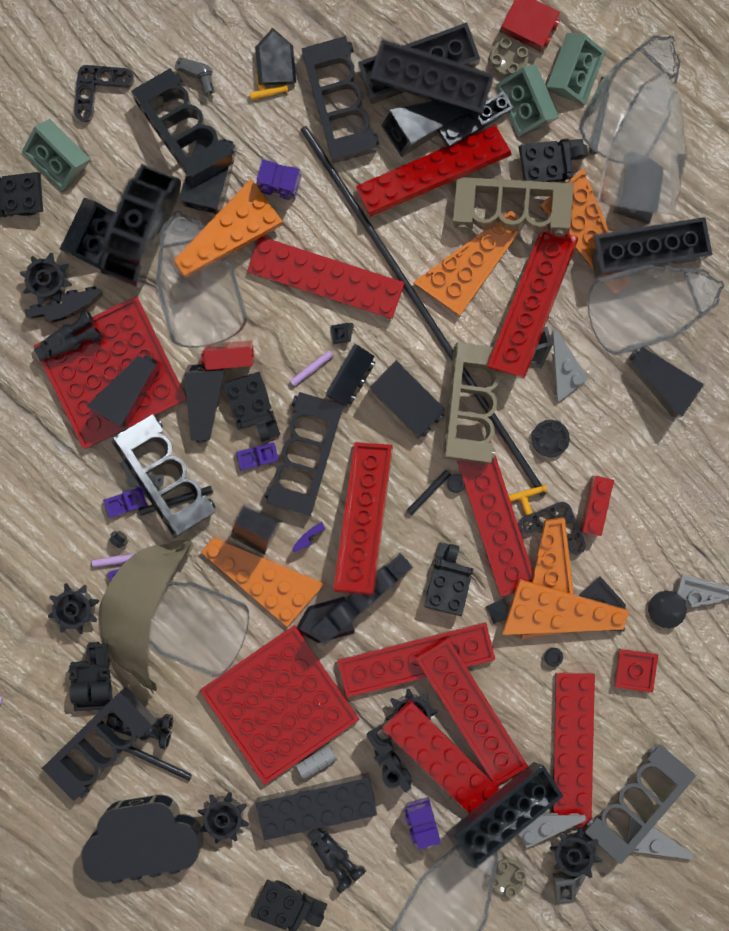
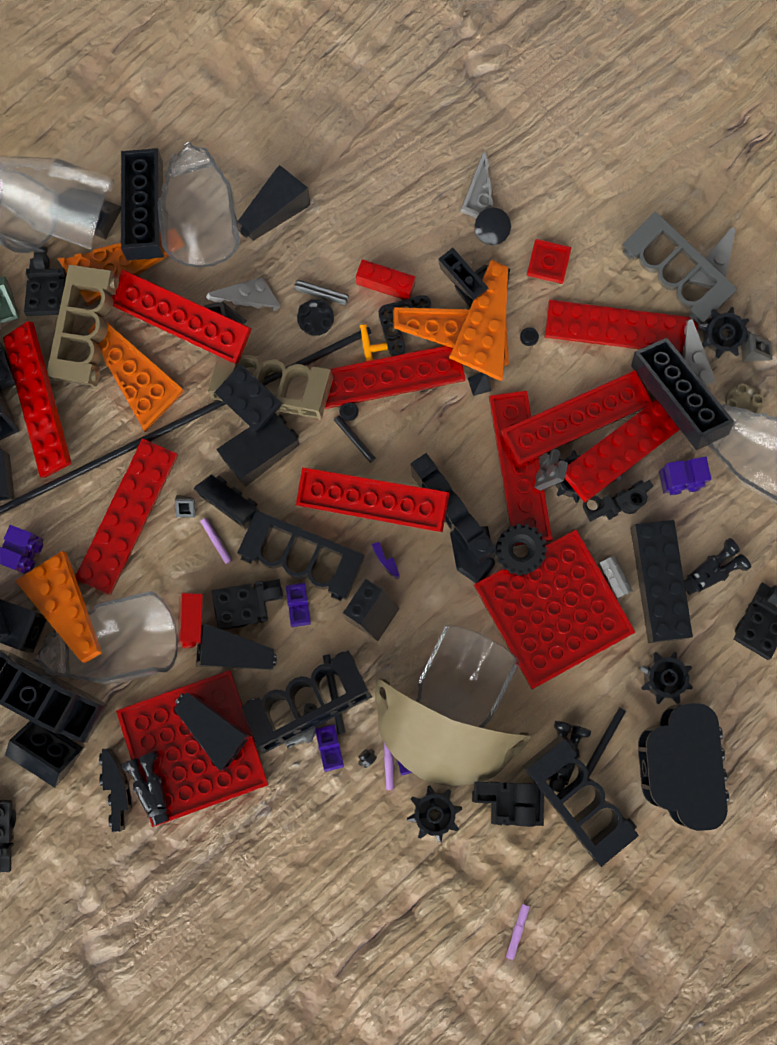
camera: 85 degrees left, 10 degrees down
(35, 276) = (73, 799): black brick -> none
(271, 584) = (431, 603): orange wing -> none
(334, 682) = (531, 539): none -> black tyre
(410, 690) = (550, 470): none -> dark grey plate
(449, 583) = (446, 427): black plate -> none
(452, 384) = (248, 398): none -> black plate
(578, 441) = (321, 292): none -> dark grey axle
(608, 584) = (462, 274): none -> black slope

